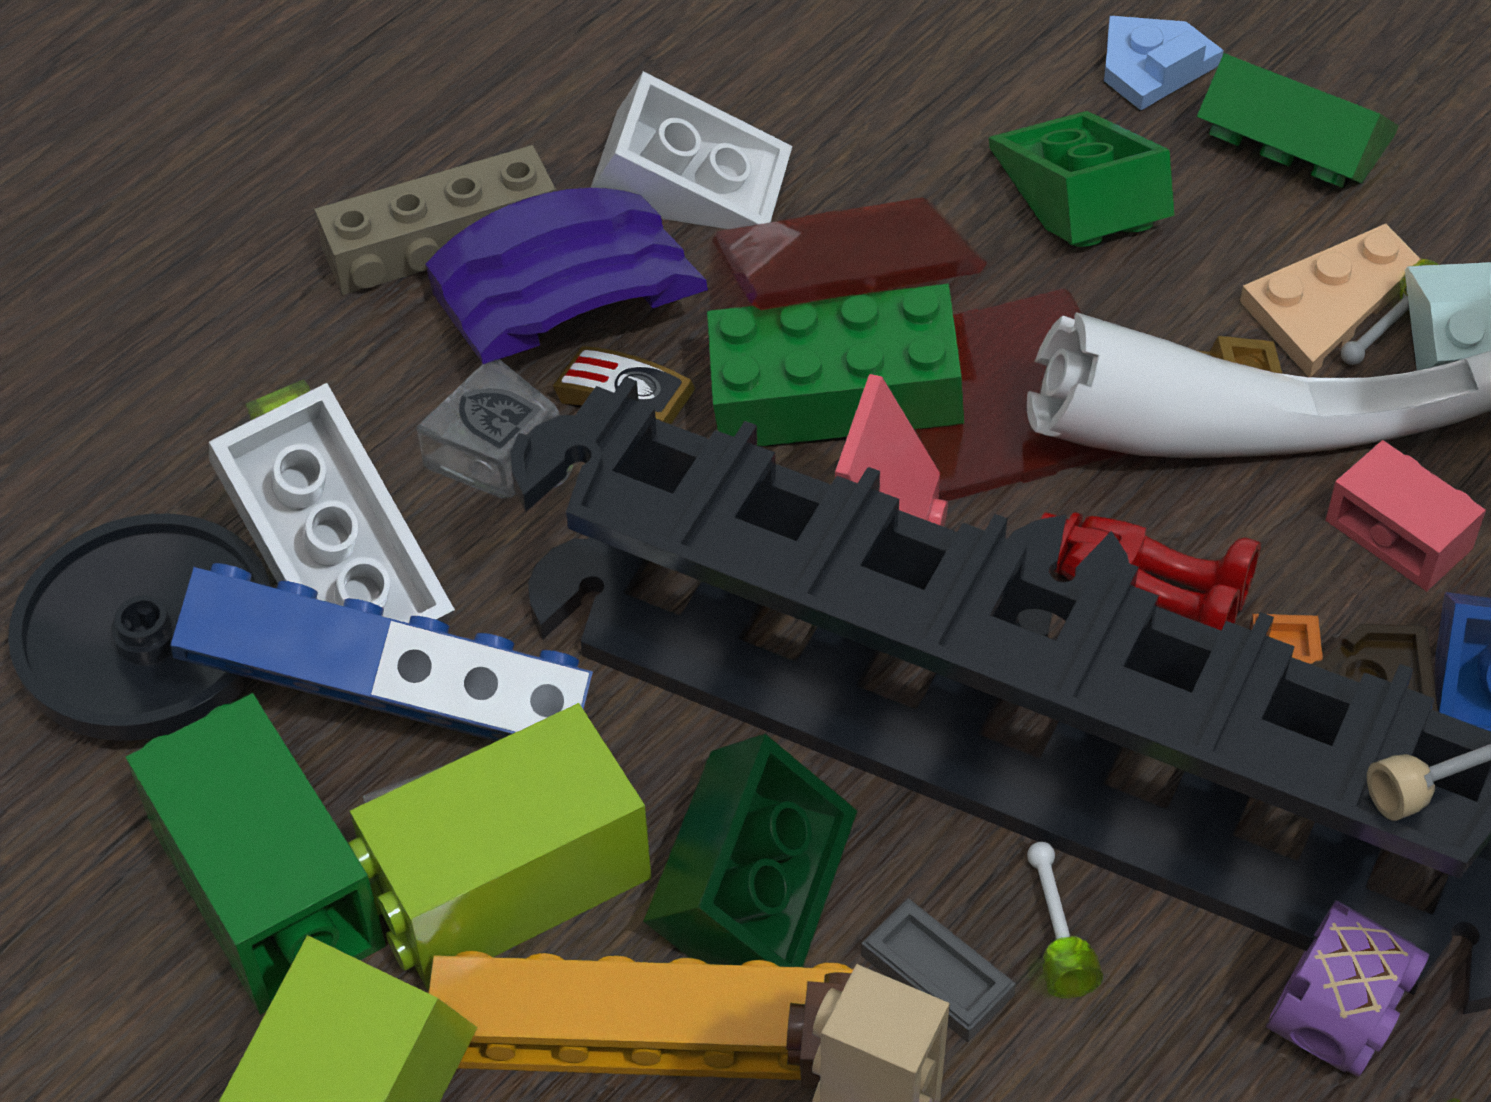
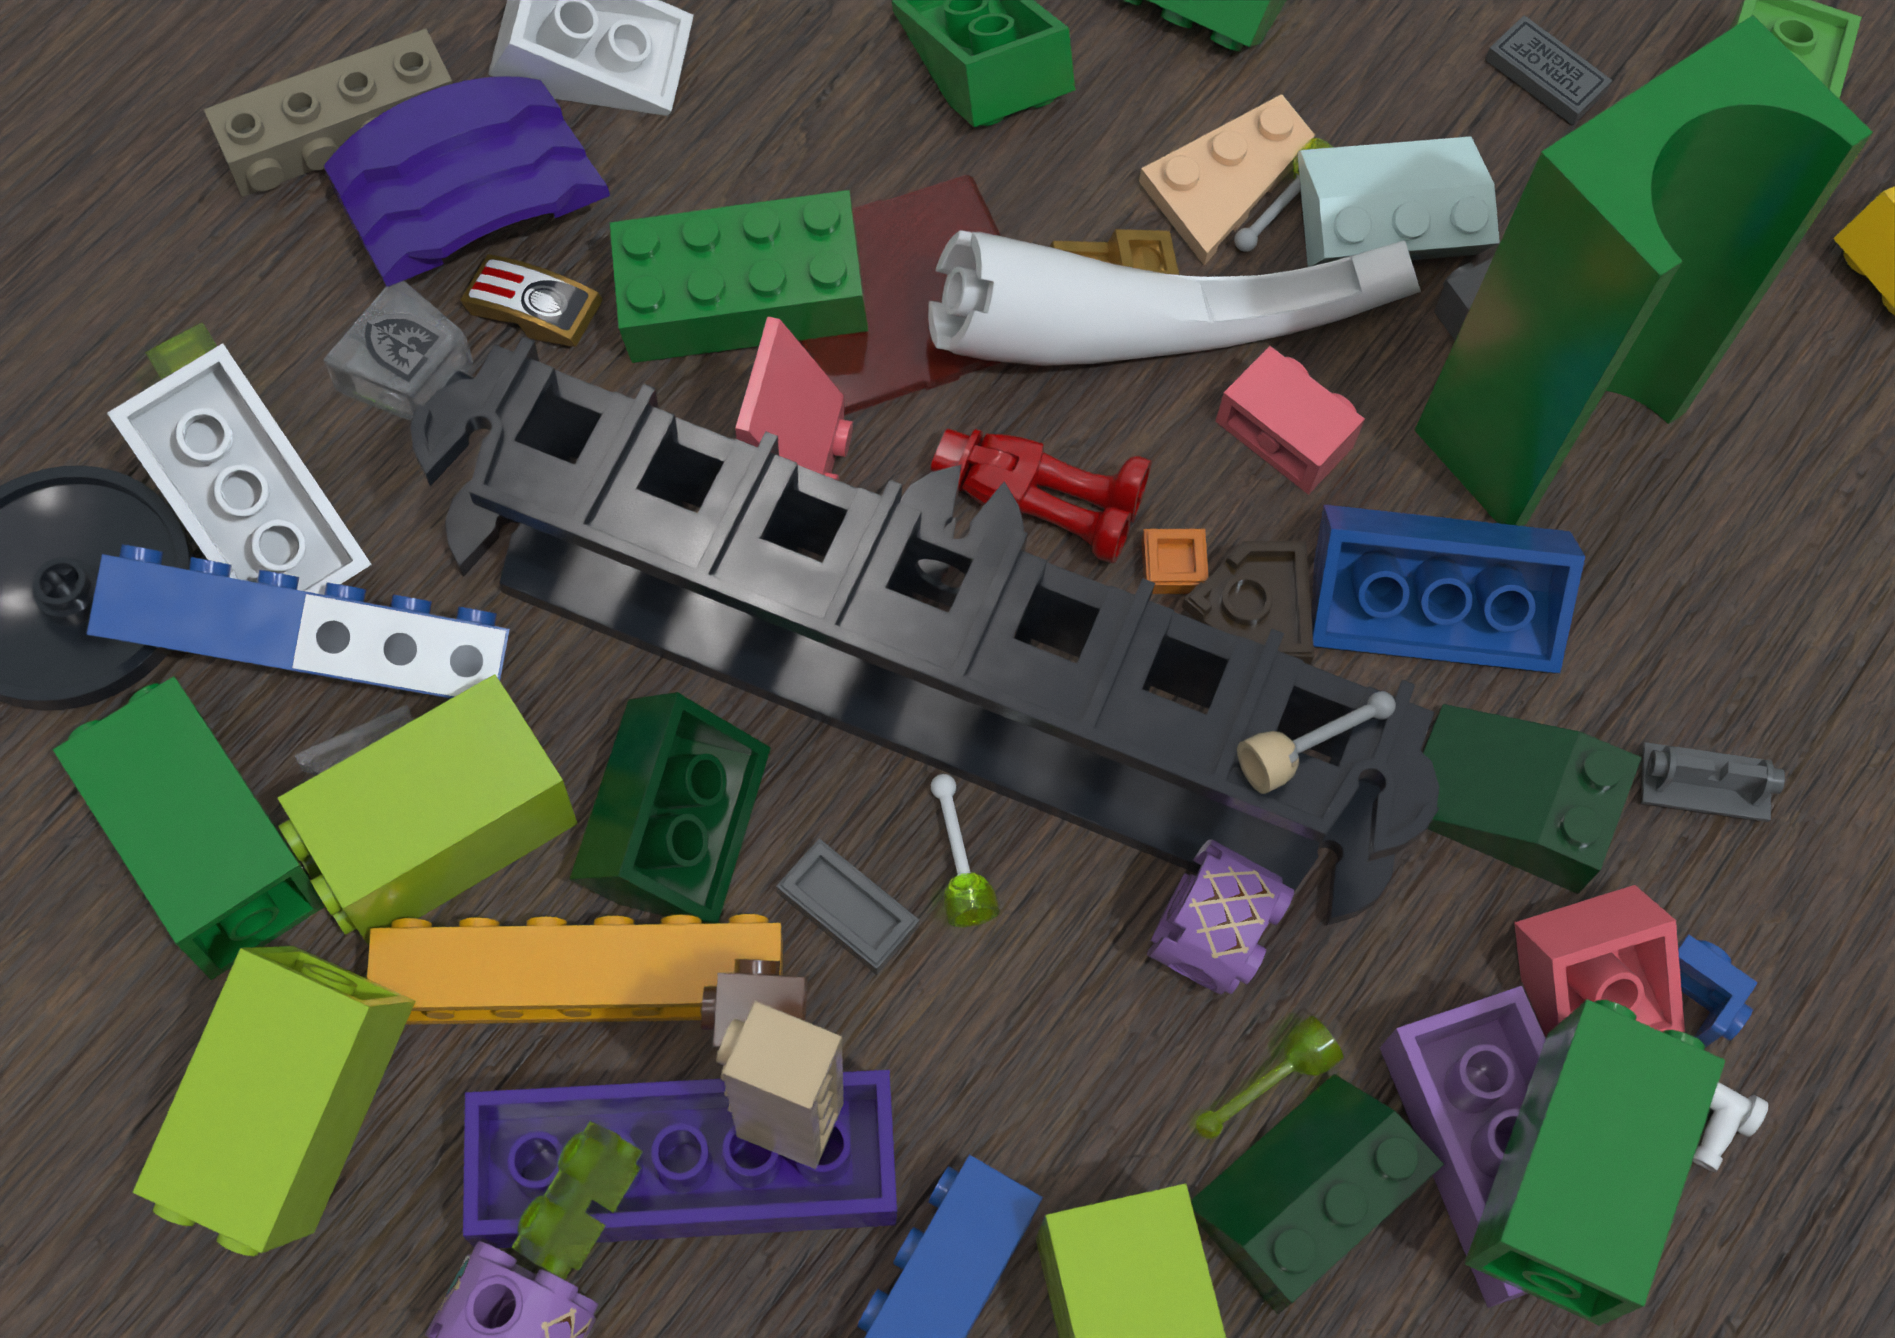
camera: 10 degrees left, 15 degrees up
(845, 253) = (747, 148): clear red piece -> none

